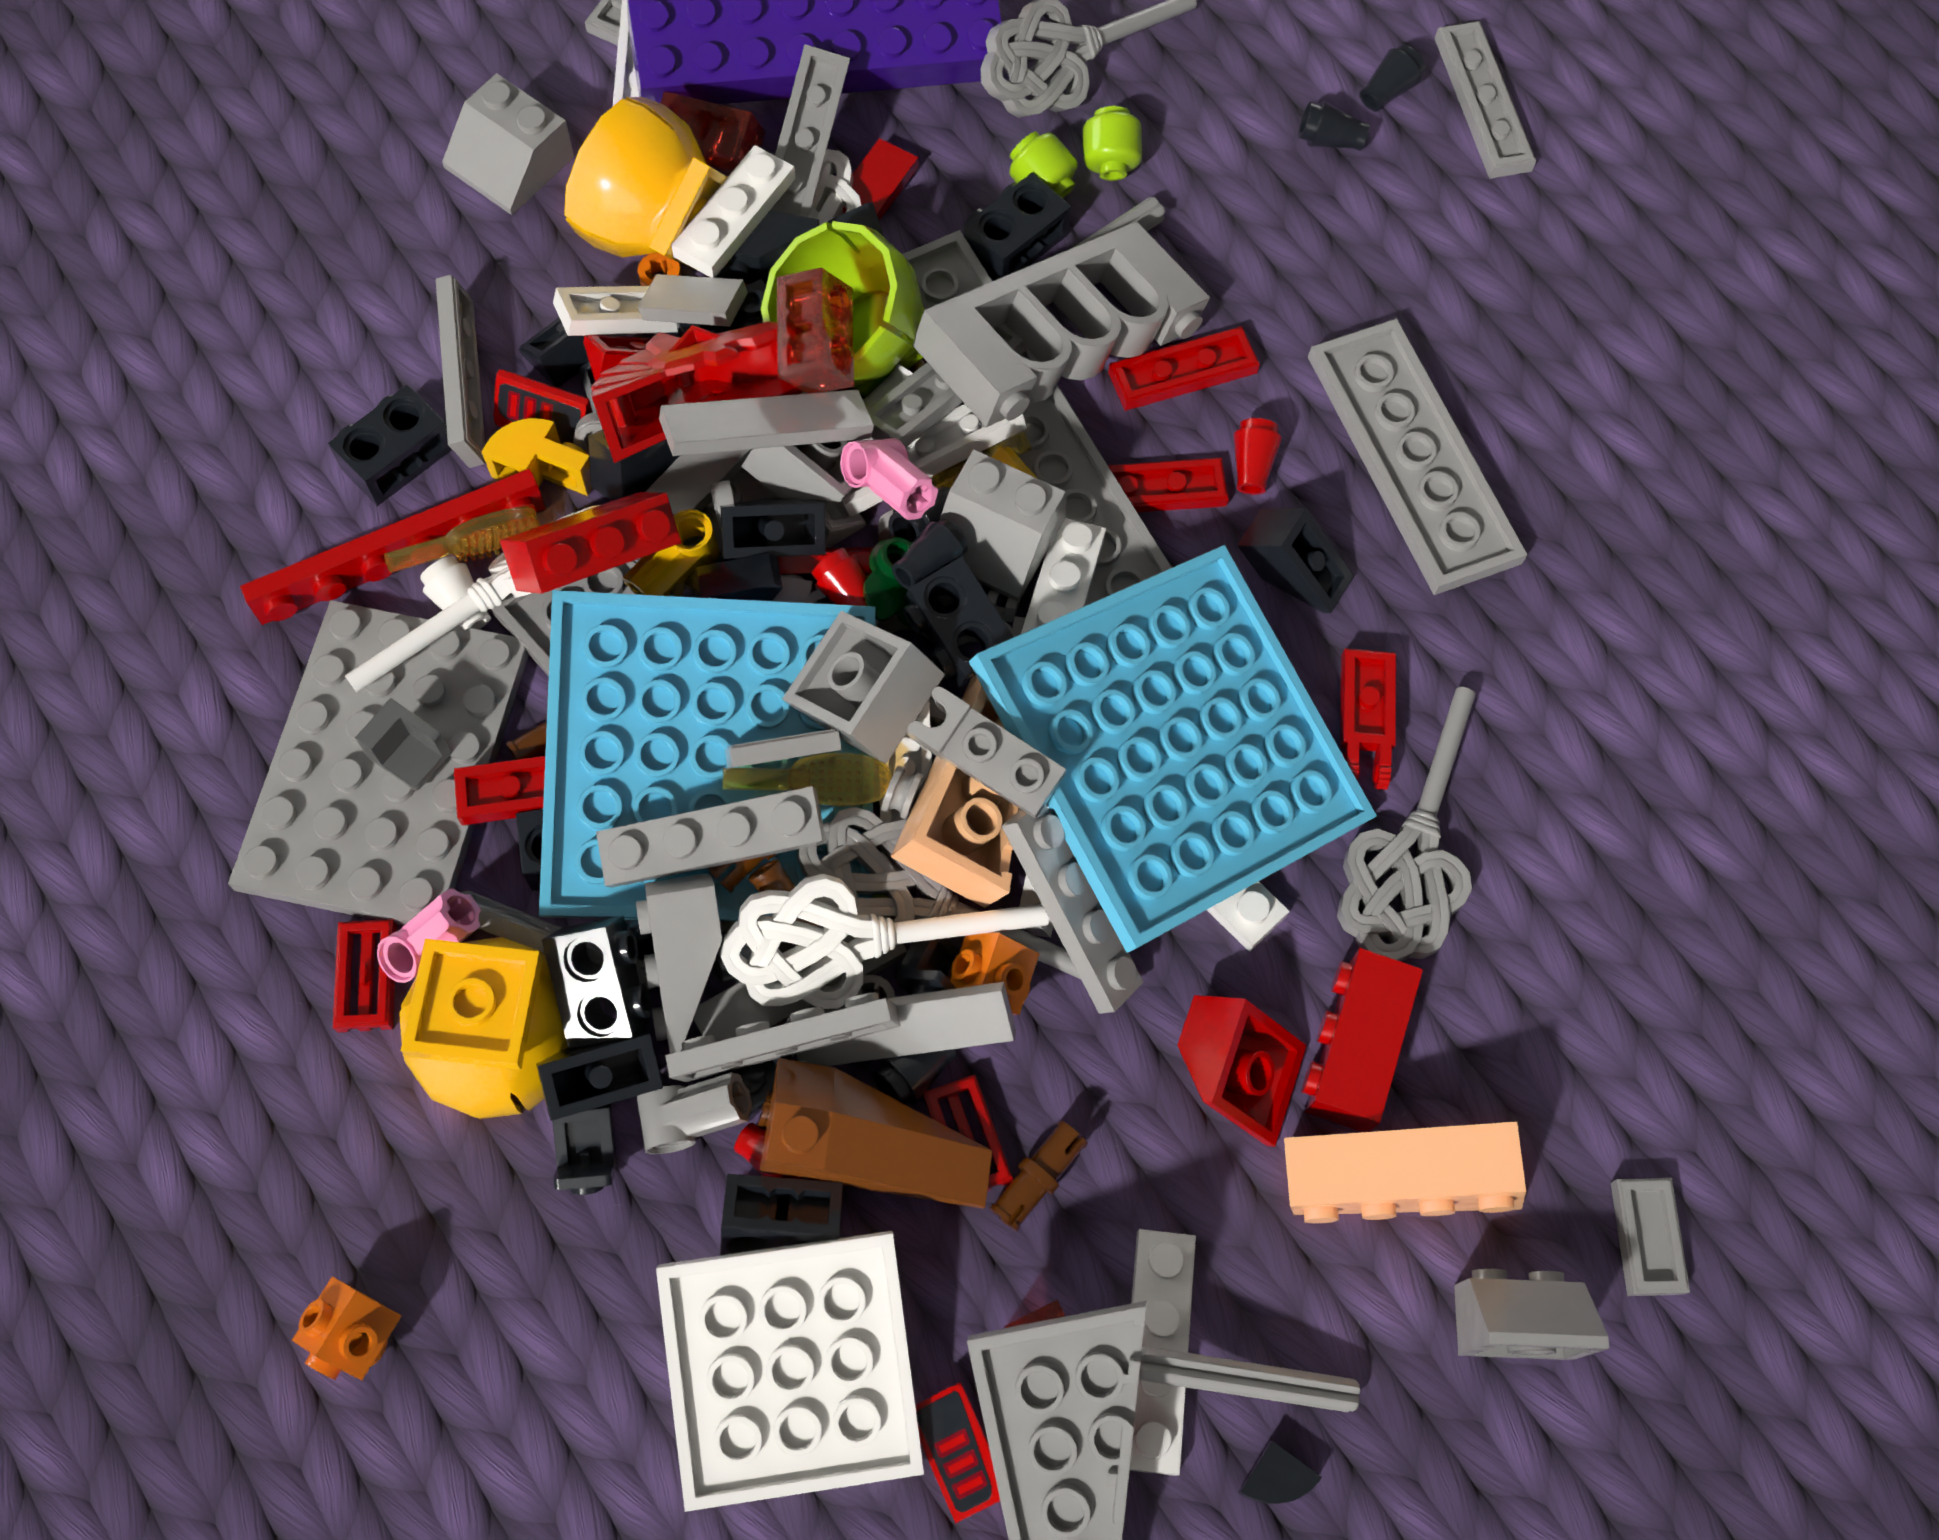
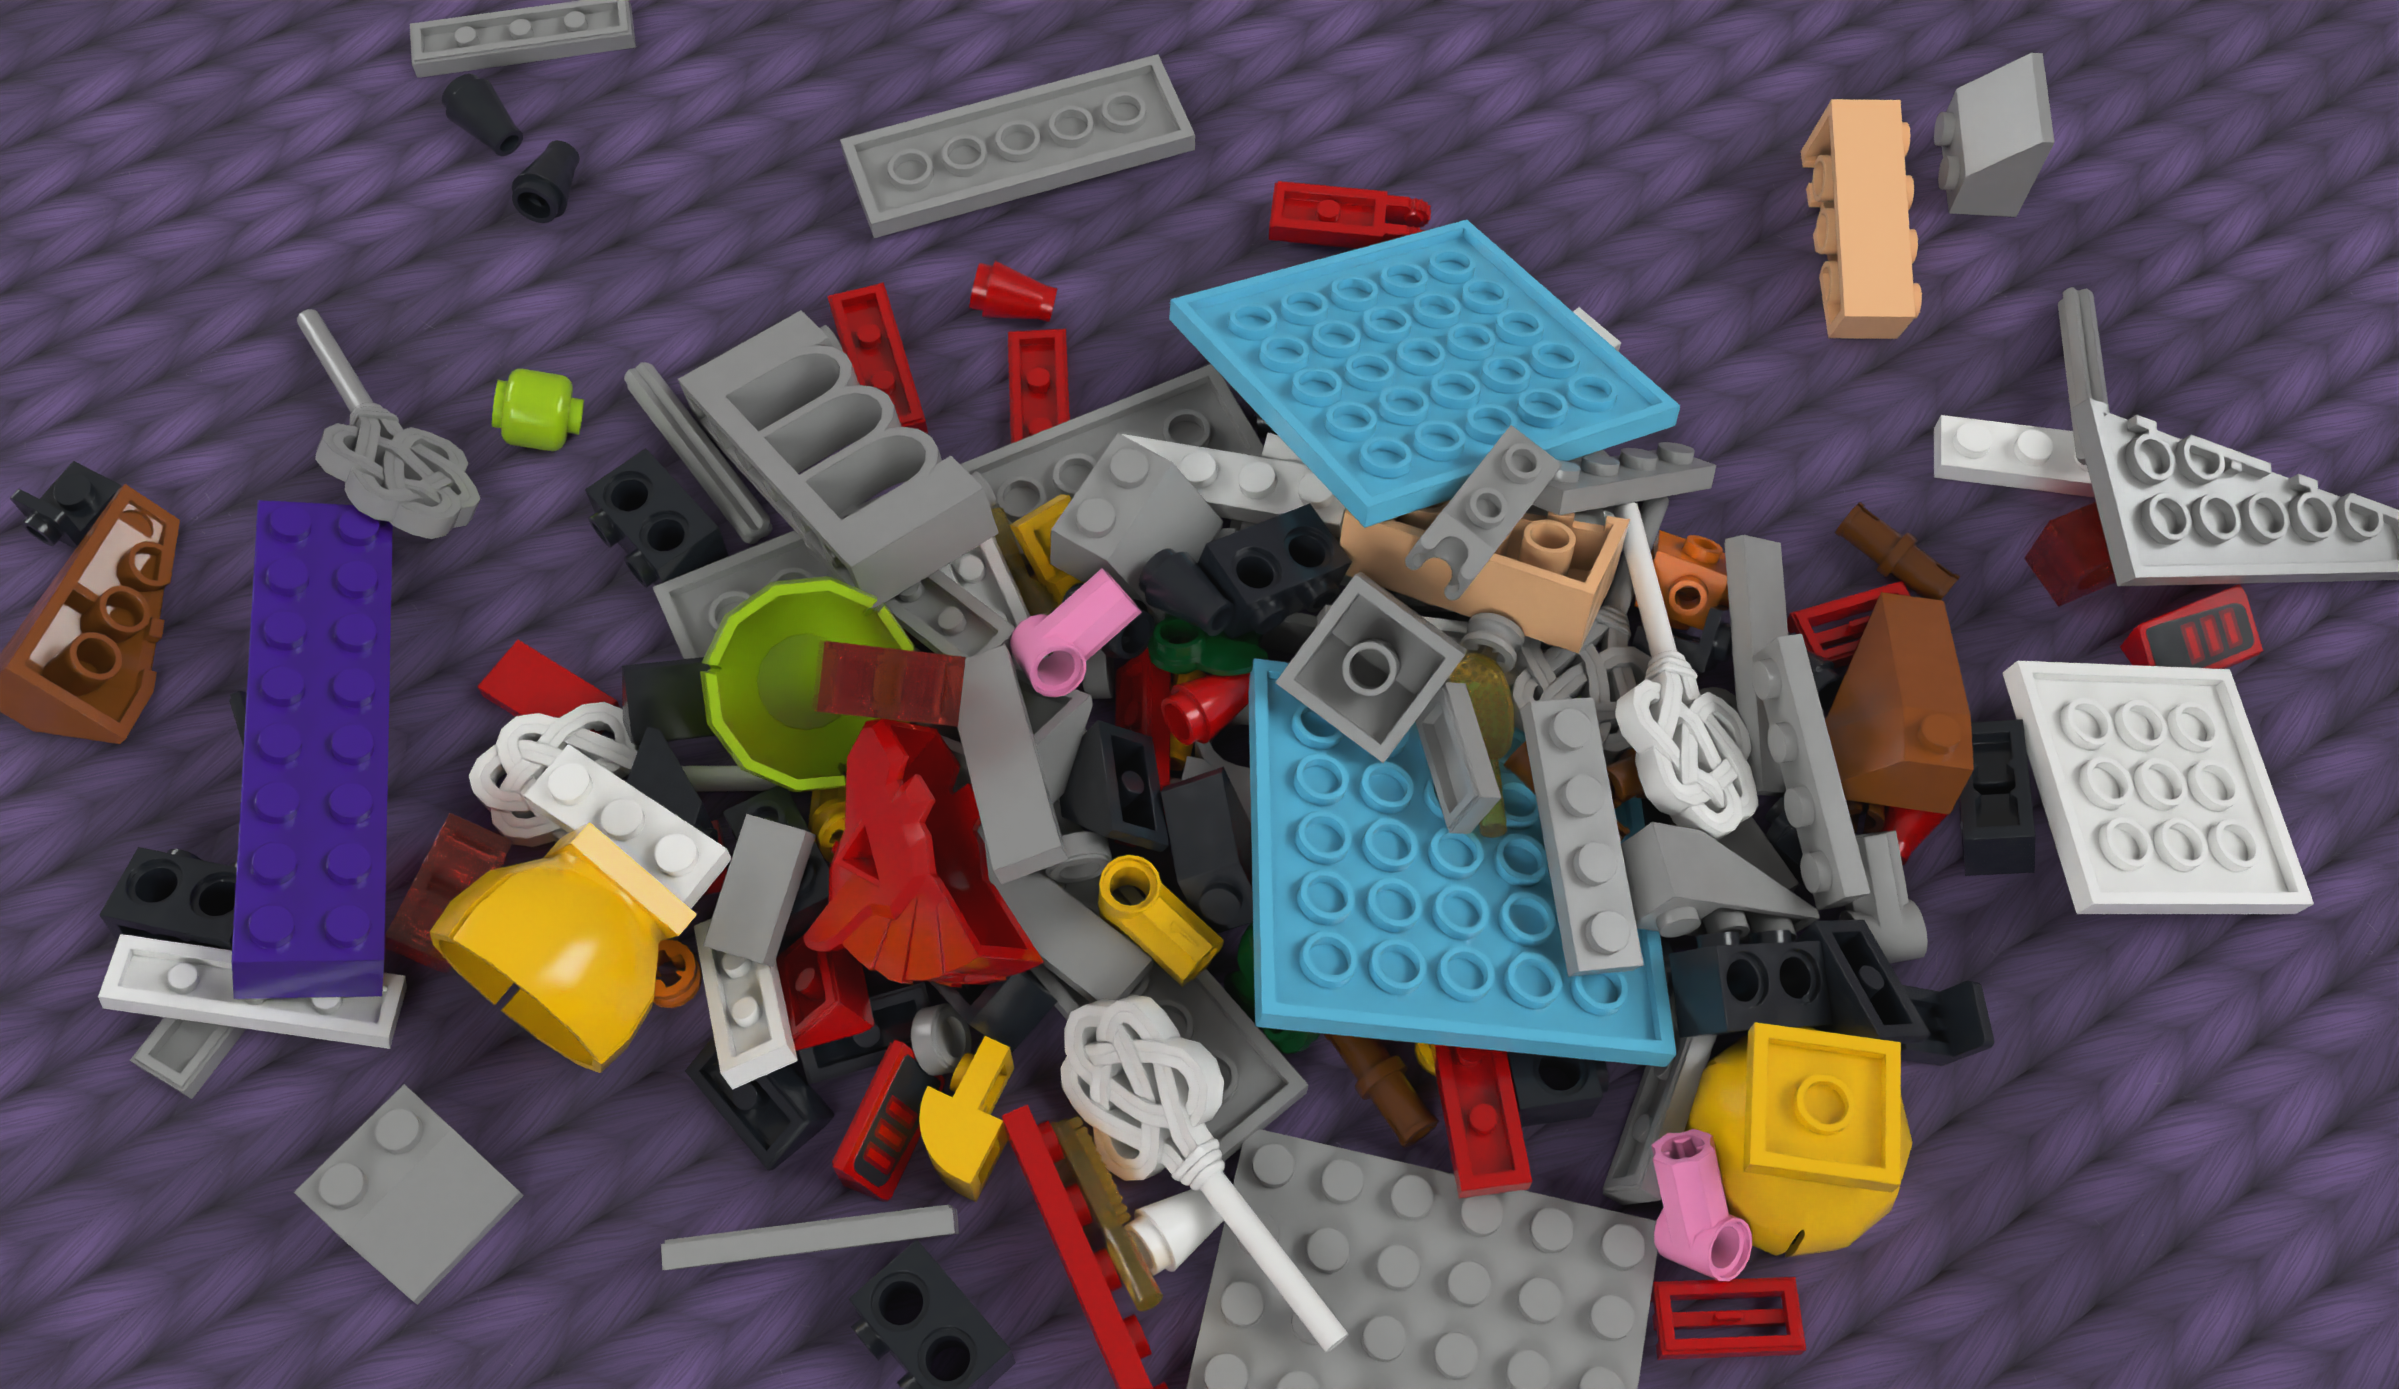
camera: 85 degrees left, 5 degrees down
(344, 1331) = (2192, 1288): orange brick -> none
(403, 744) = (1427, 1262): dark grey panel -> none
(590, 542) = (1171, 985): red brick -> none
(809, 125) = (472, 736): light grey plate -> none
(1047, 160) = (555, 485): lime head -> none
(1241, 1063) = (1755, 363): red slope -> none
(1278, 1477) = (2165, 367): black tile -> none
(1296, 557) = (1149, 266): black slope -> none
(1361, 1040) = (1721, 251): red brick -> none
(1430, 866) = (1532, 208): light grey piece -> none
(1649, 1237) = (1884, 54): light grey tile -> none

